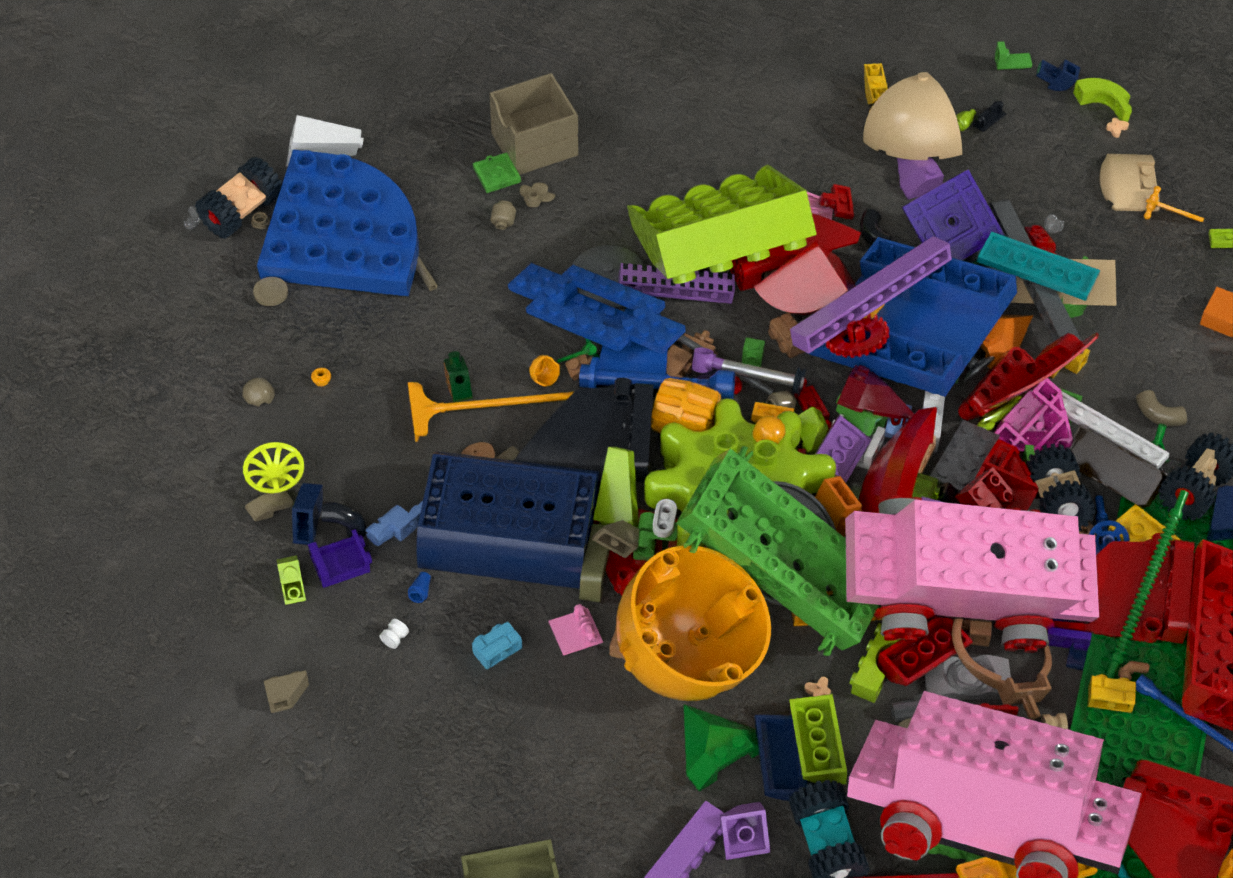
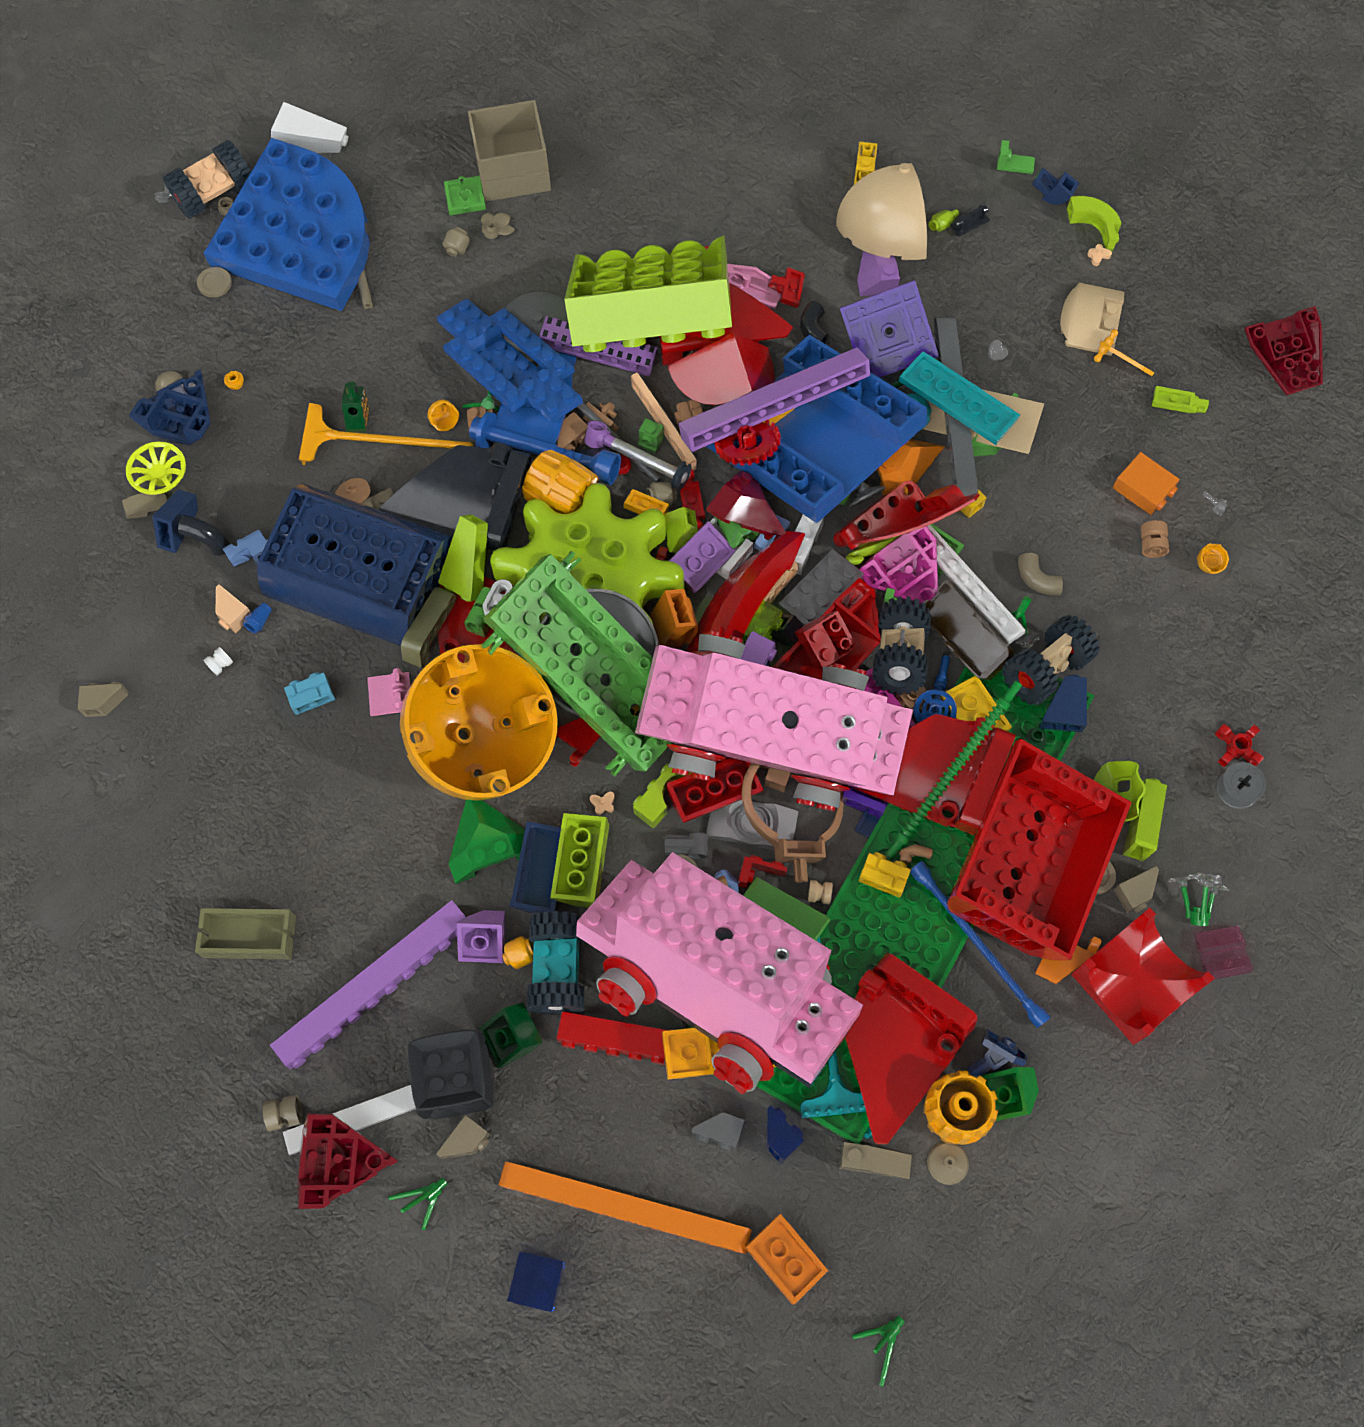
camera: 15 degrees right, 15 degrees up
(277, 413) = (176, 412): none -> dark blue wedge
(291, 580) = (140, 585): lime slope -> none
(340, 560) = (191, 574): dark purple panel -> none
(391, 584) = (230, 610): none -> light nougat slope
(618, 537) = (450, 608): dark tan slope -> none
(750, 330) = (660, 417): none -> light nougat tile
(769, 429) = (625, 527): light orange hair -> none
(781, 633) = (579, 736): none -> red flag
(785, 837) = (518, 952): none -> light orange head
(1040, 238) = (975, 367): red brick -> none

